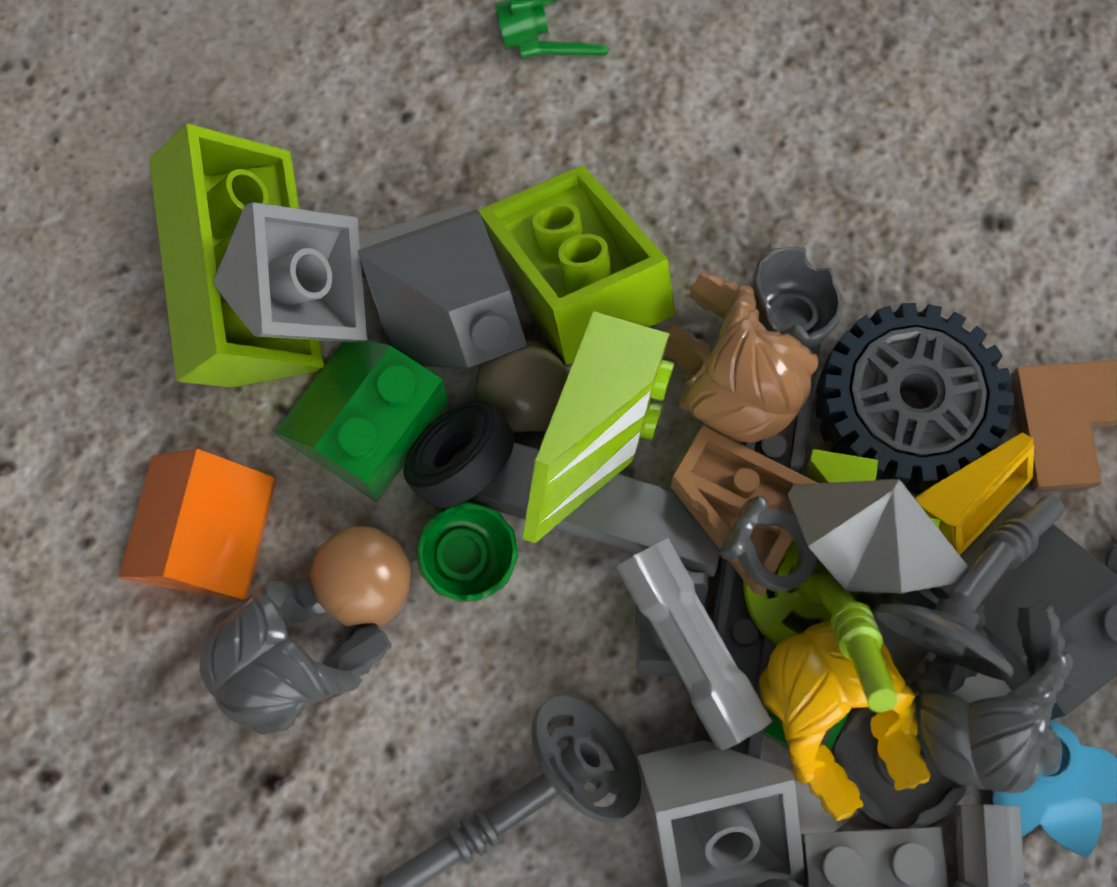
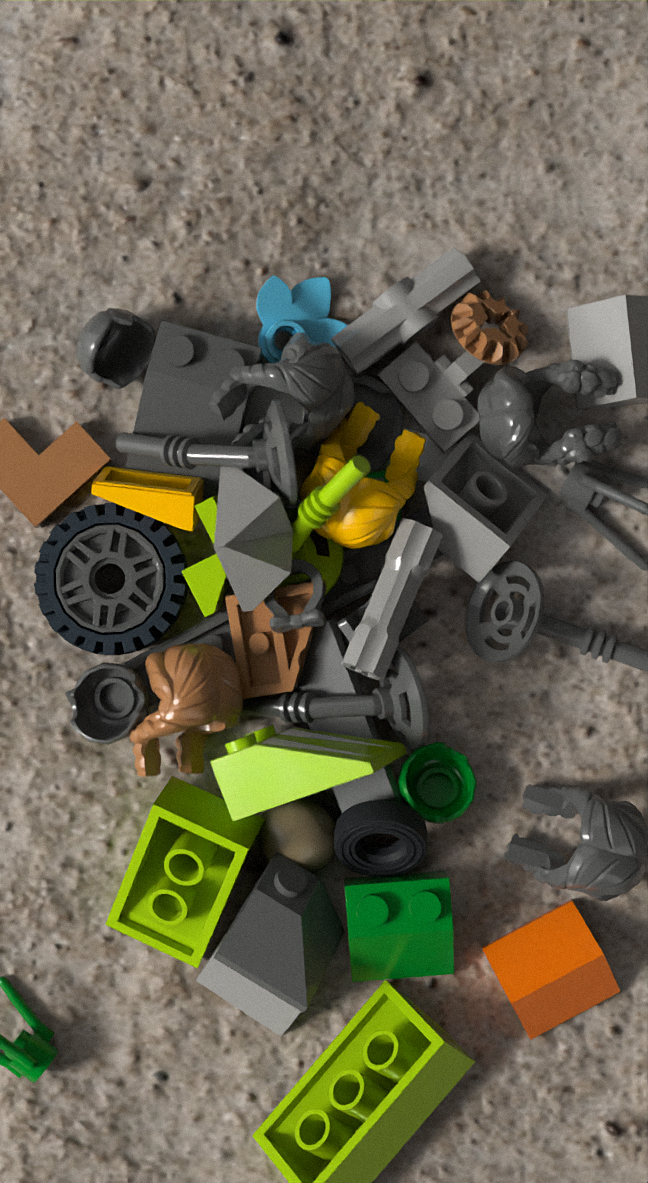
camera: 125 degrees left, 15 degrees up
(295, 274) = (353, 1036): light grey slope -> none
(361, 576) = (503, 836): medium nougat hair -> none
(586, 567) = (388, 702): none -> dark grey dish

